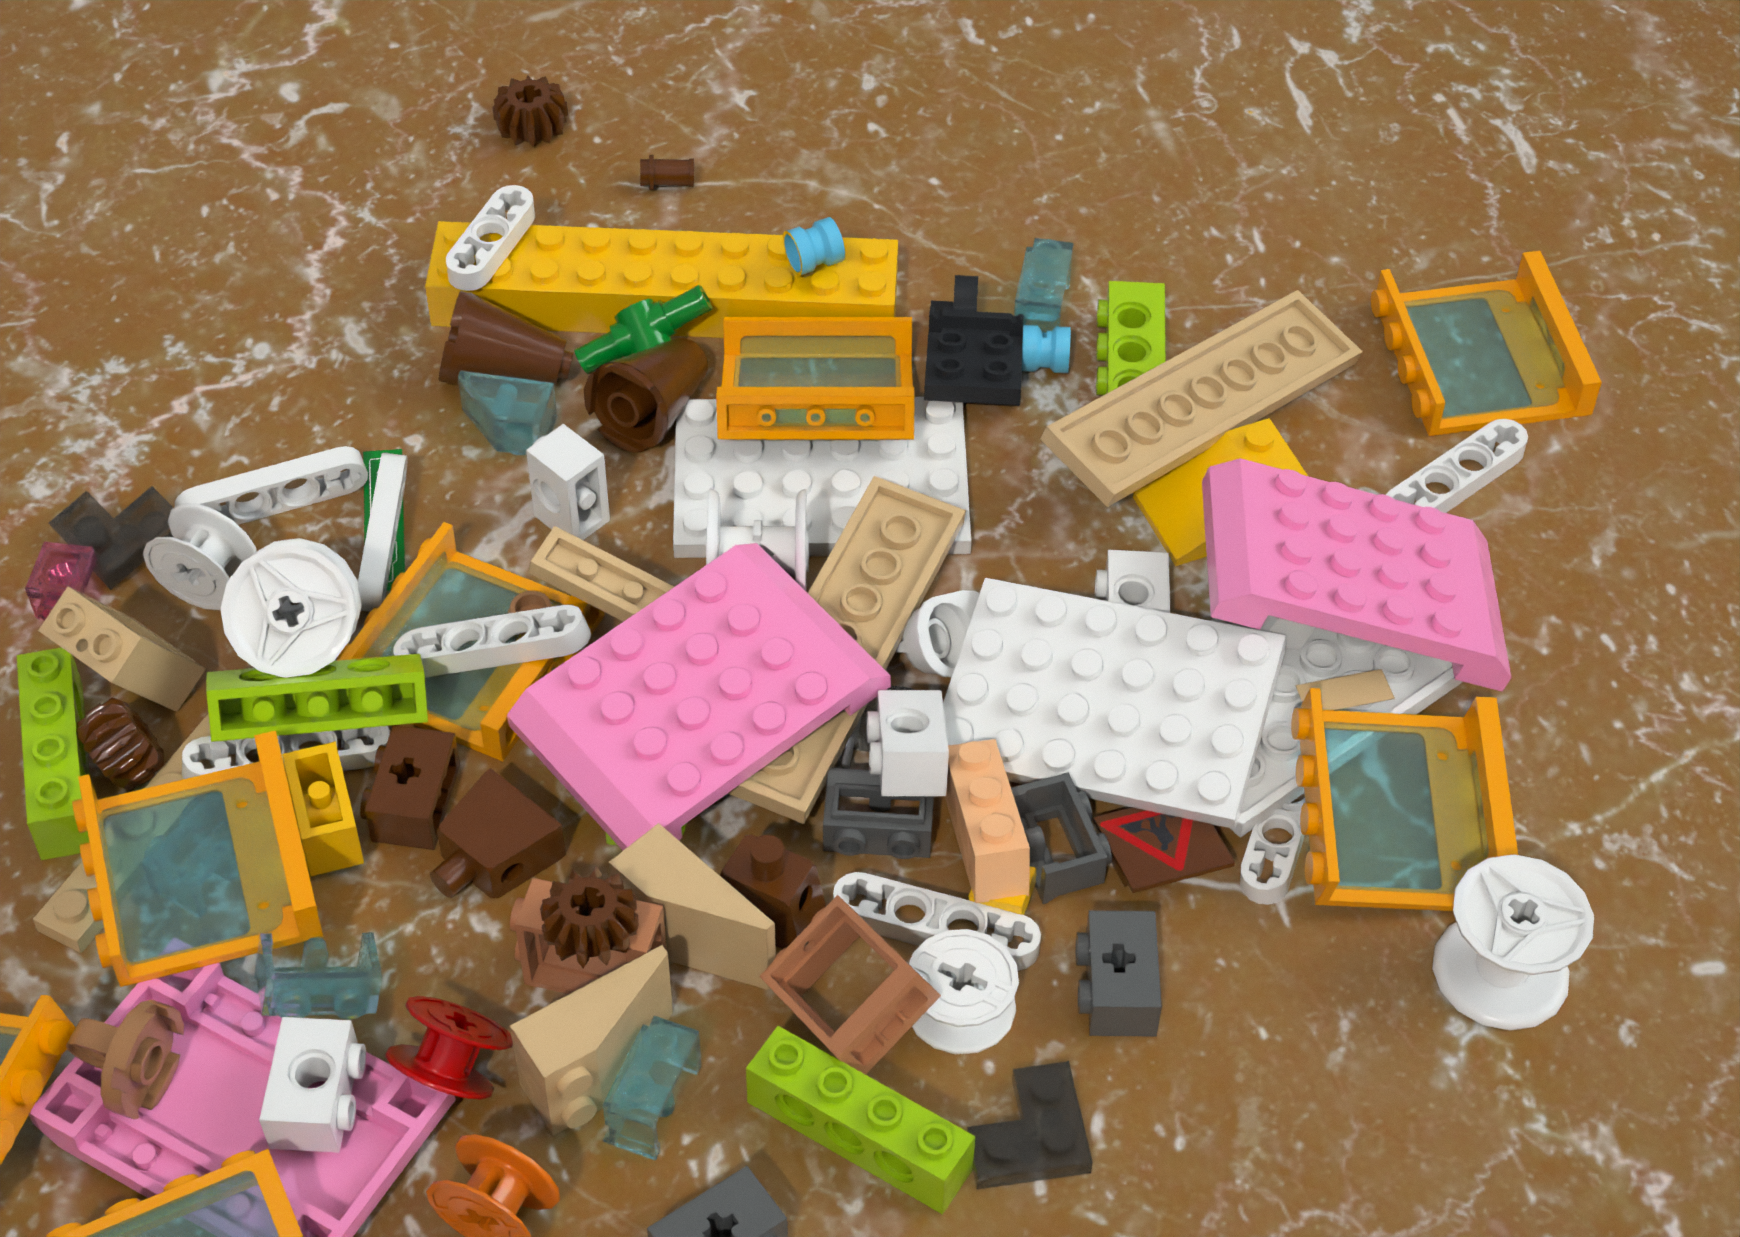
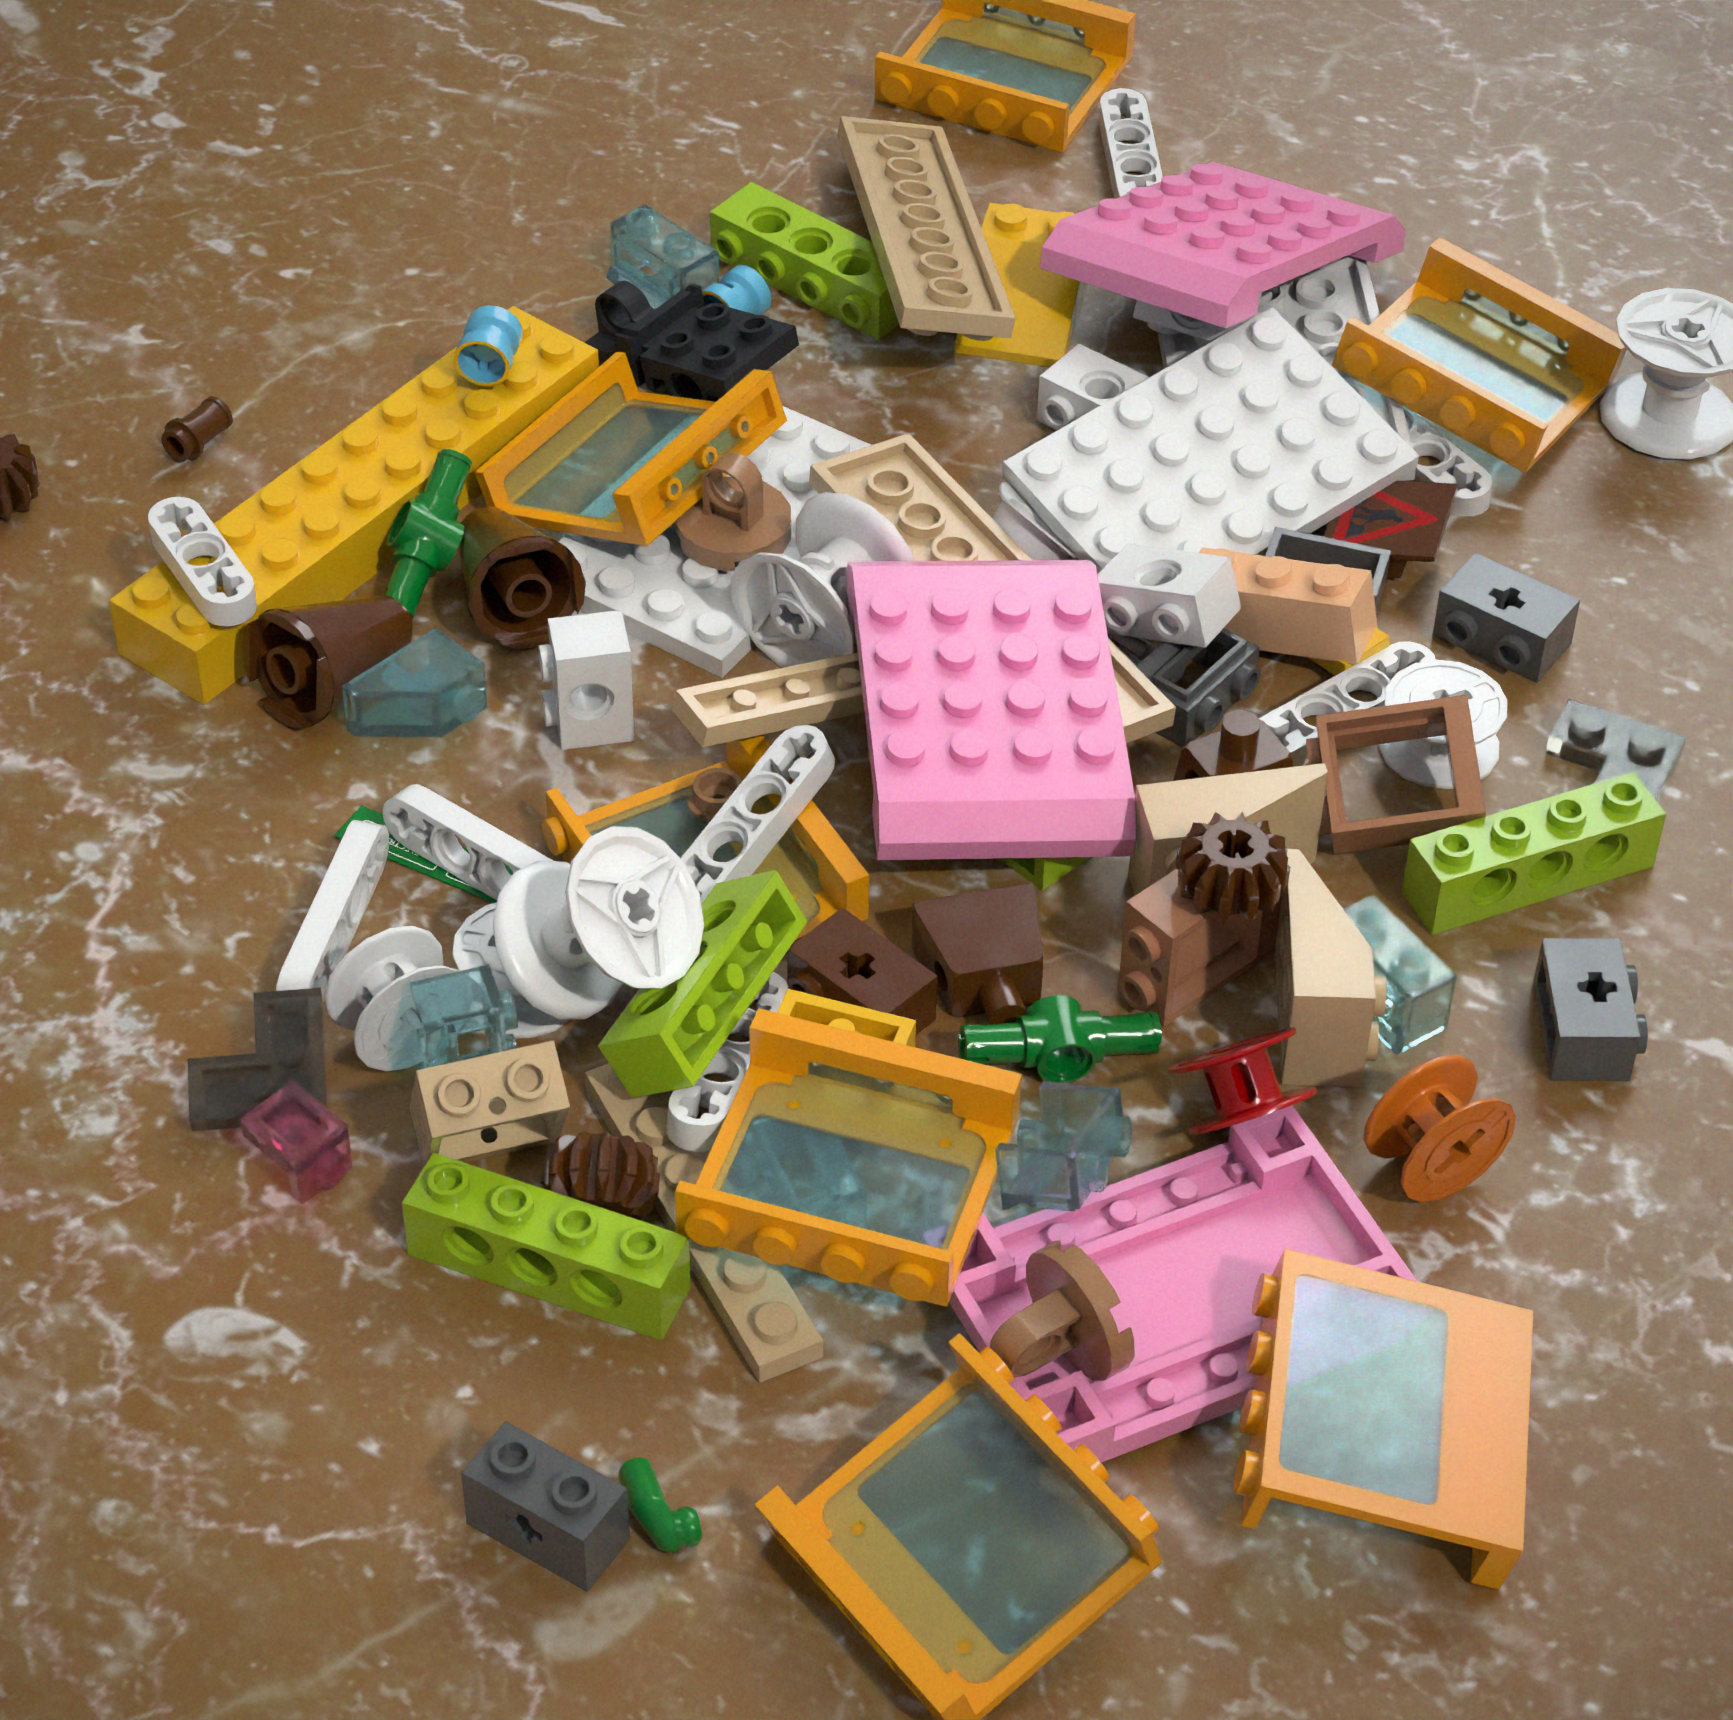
camera: 55 degrees left, 5 degrees down
(193, 595) = (458, 1006): none -> clear light blue window
(304, 1054) = (1206, 1201): white brick -> none
(445, 926) = (1060, 1039): none -> green pin
(798, 463) = (734, 516): none -> medium nougat tile
(1350, 690) = (1328, 326): tan sticker -> none

